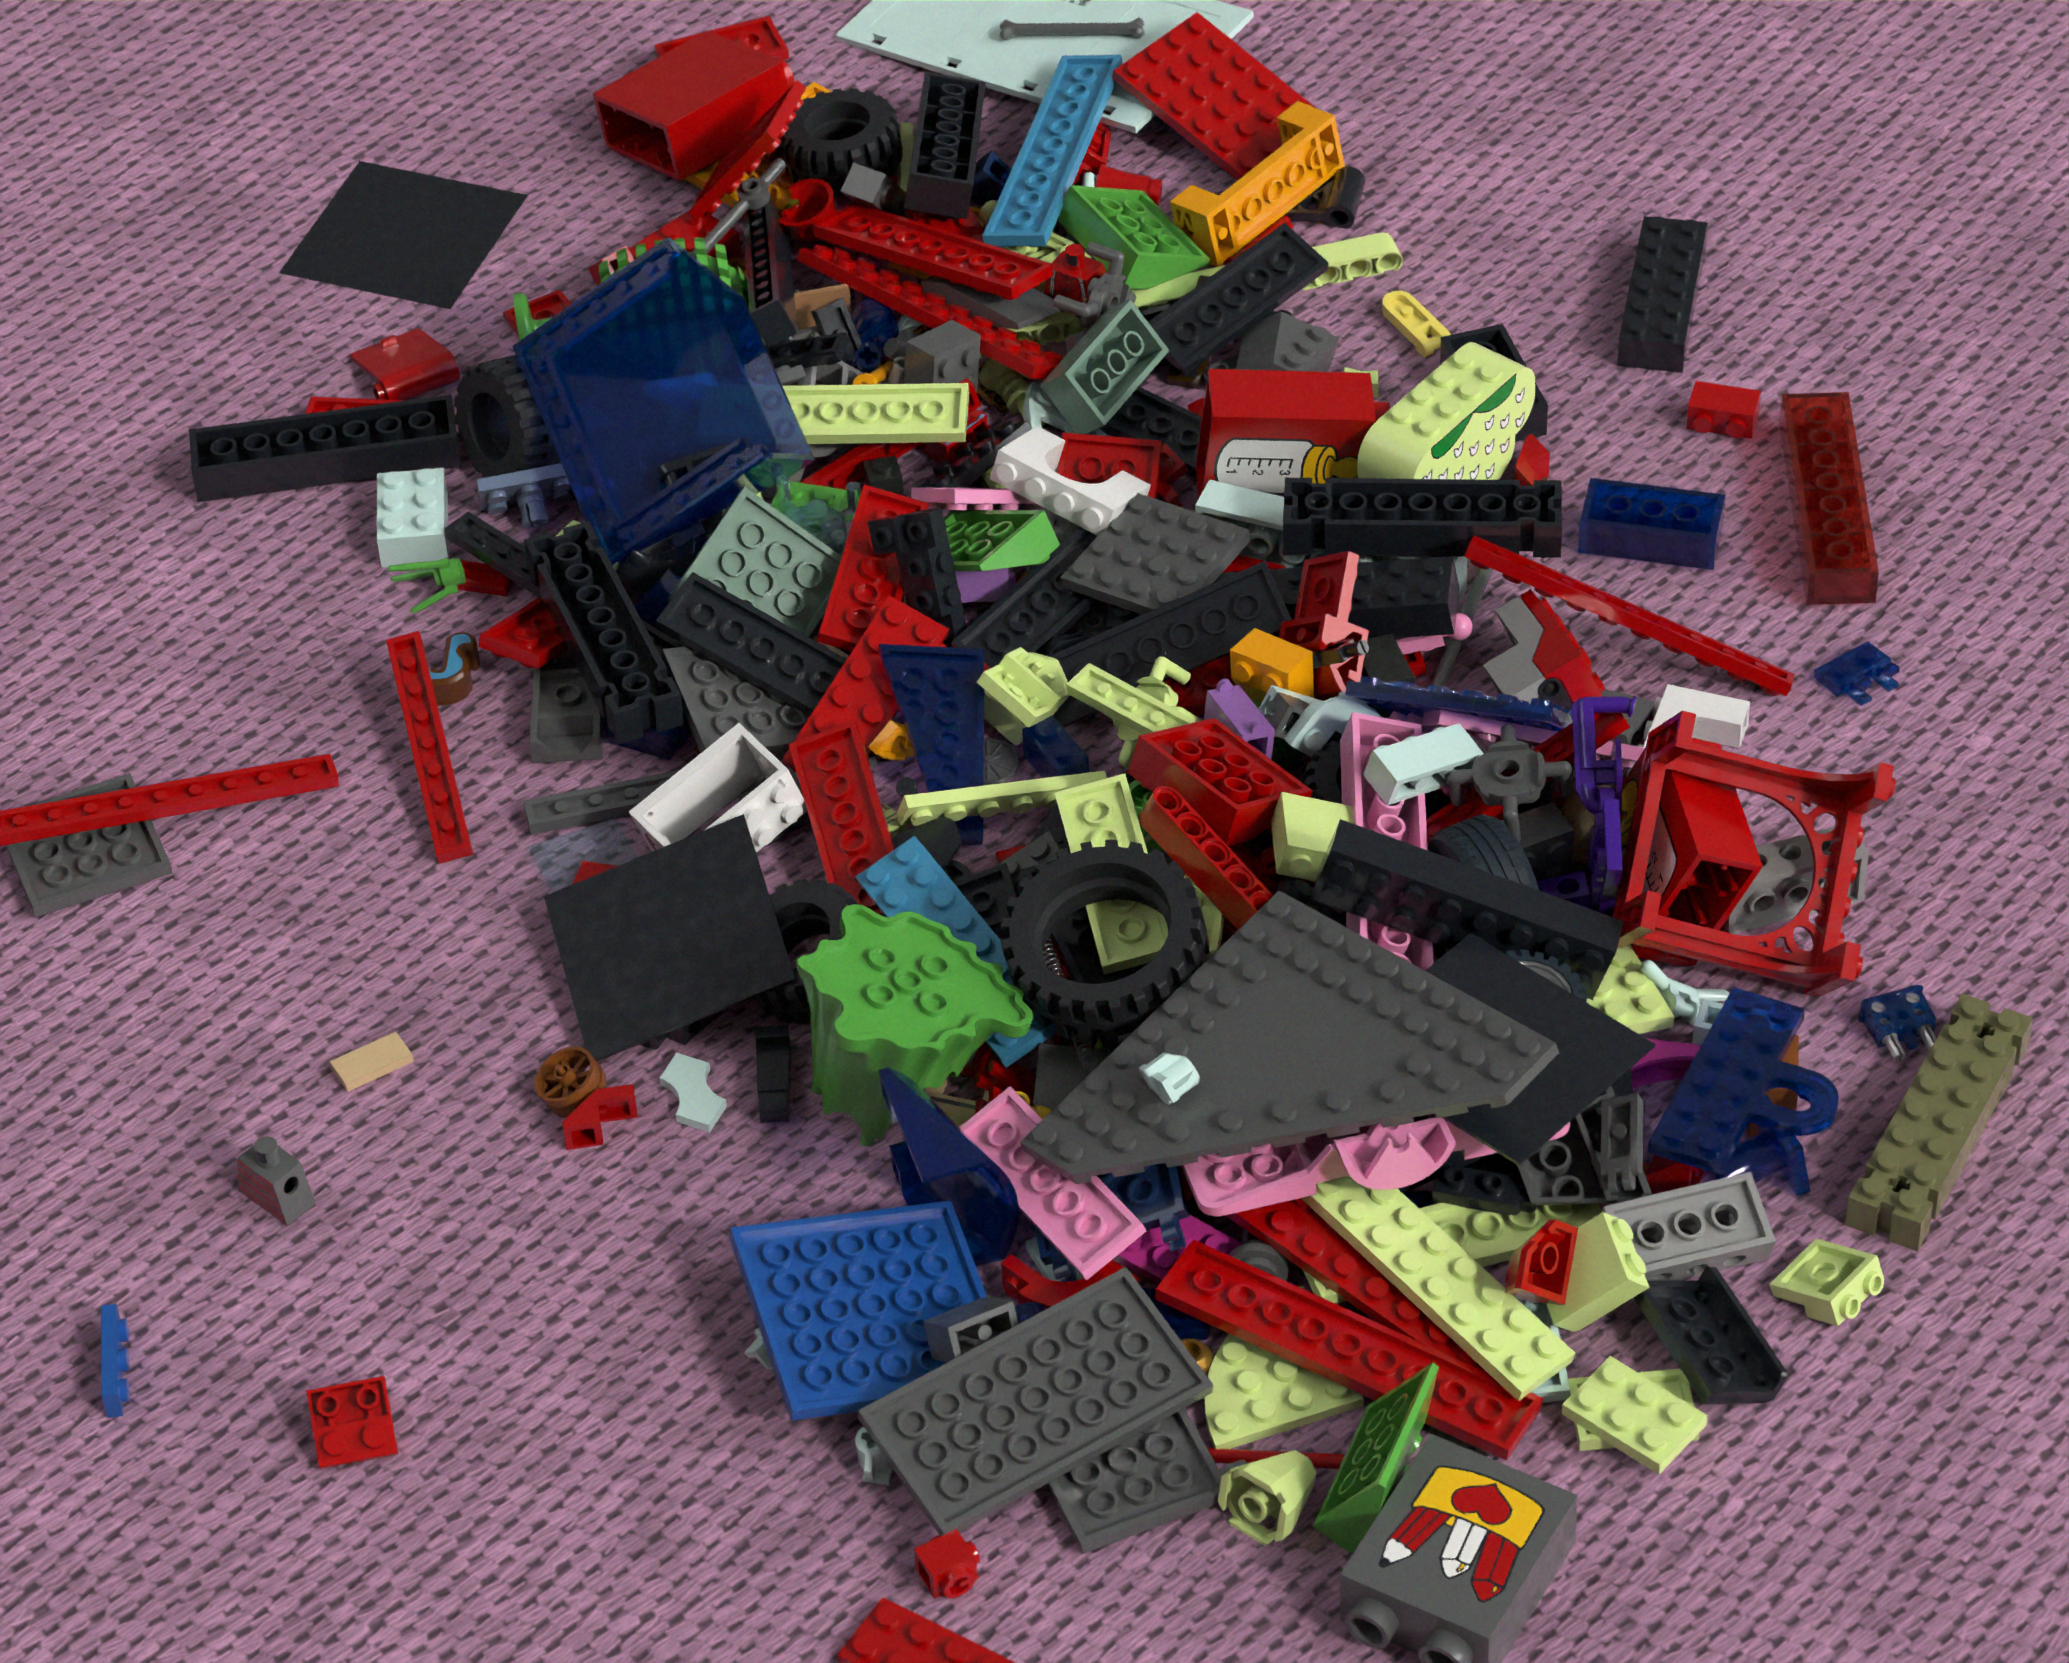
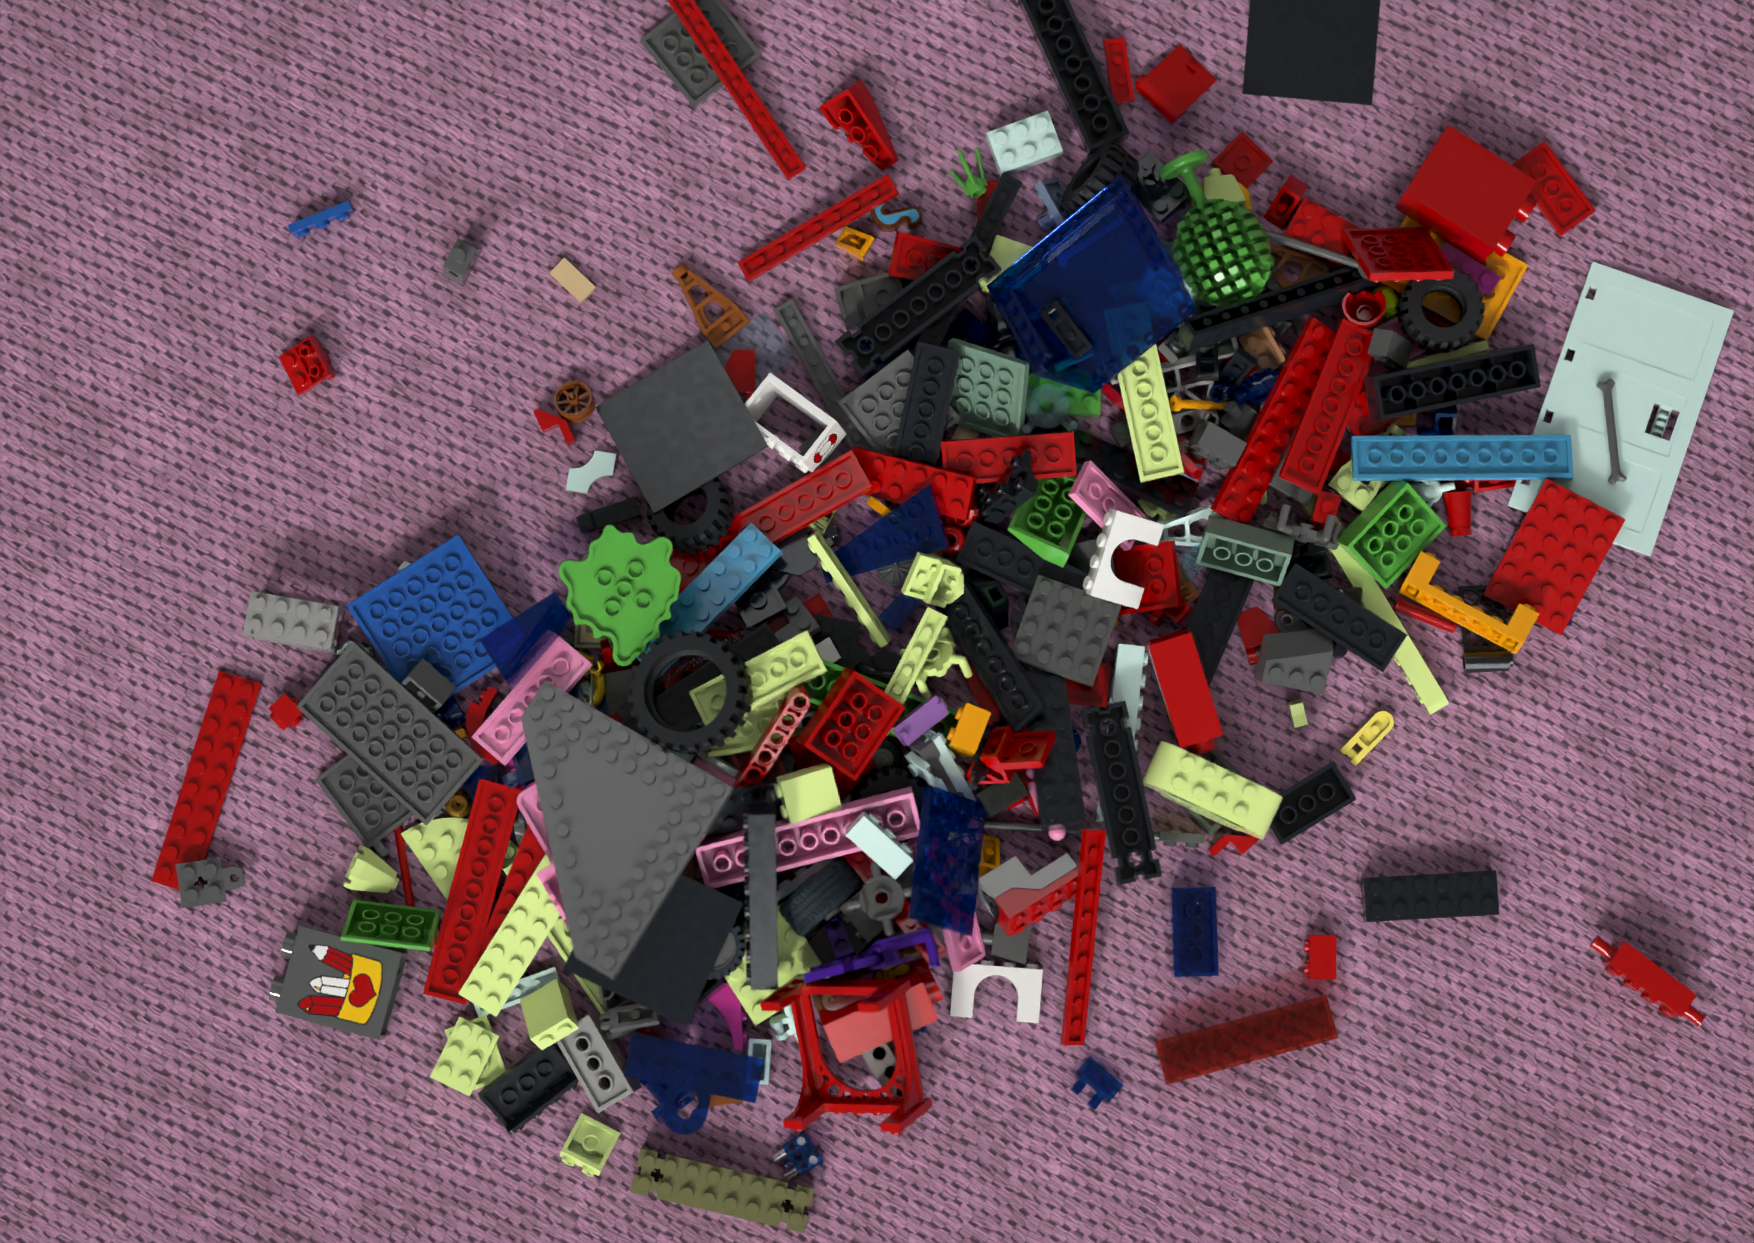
camera: 70 degrees right, 40 degrees up
(277, 687) = (859, 117): none -> red wedge
(473, 715) = (855, 242): none -> light orange slope
(526, 881) = (724, 327): none -> dark orange plate
(793, 1505) = (293, 622): none -> light grey hose
(1170, 1076) = (576, 760): light aqua piece -> none
(1543, 1264) = (535, 988): red slope -> none
(1834, 108) = (1649, 979): none -> red brick

